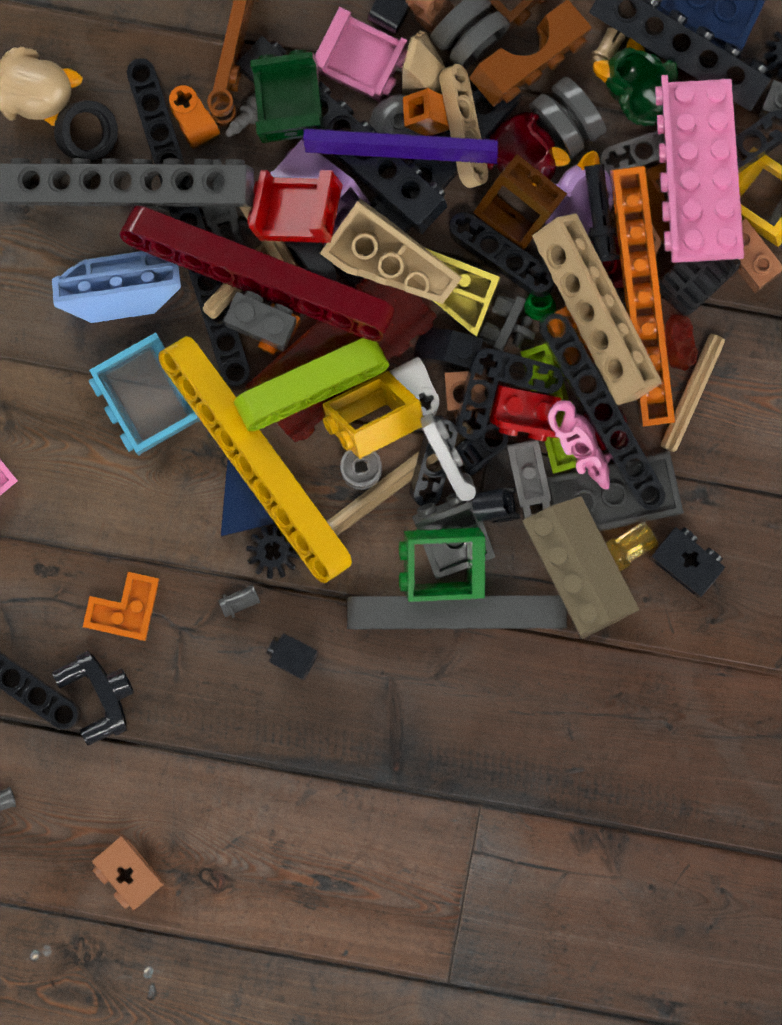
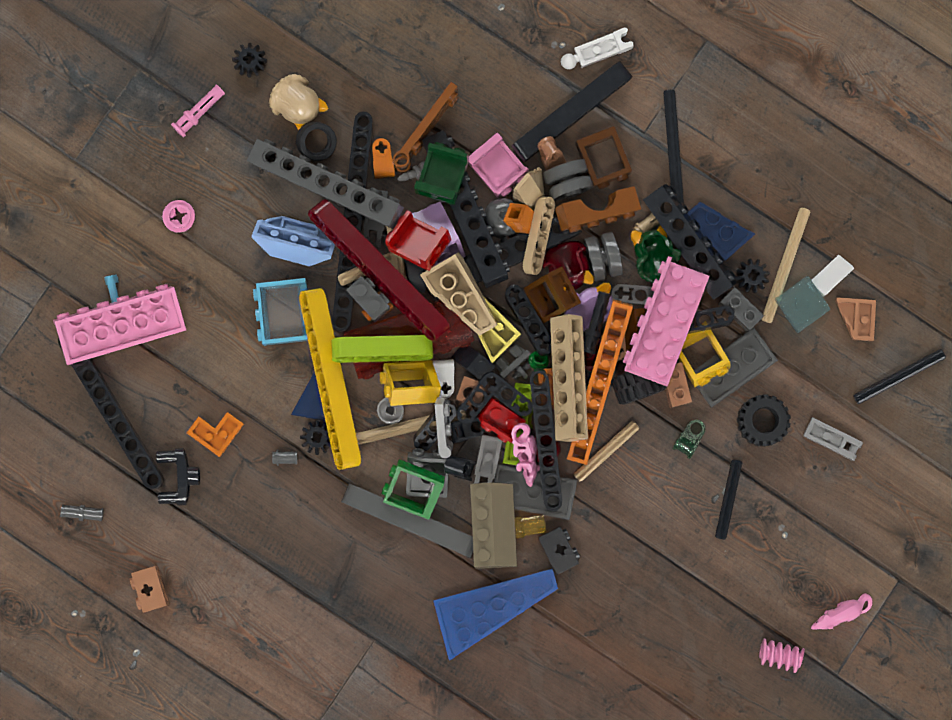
camera: 20 degrees right, 0 degrees up
(292, 655) = (301, 504): black brick -> none
(400, 146) = (495, 232): dark purple tile -> none
(614, 698) = (478, 612): none -> blue wing
(680, 342) = (611, 418): clear red plate -> none

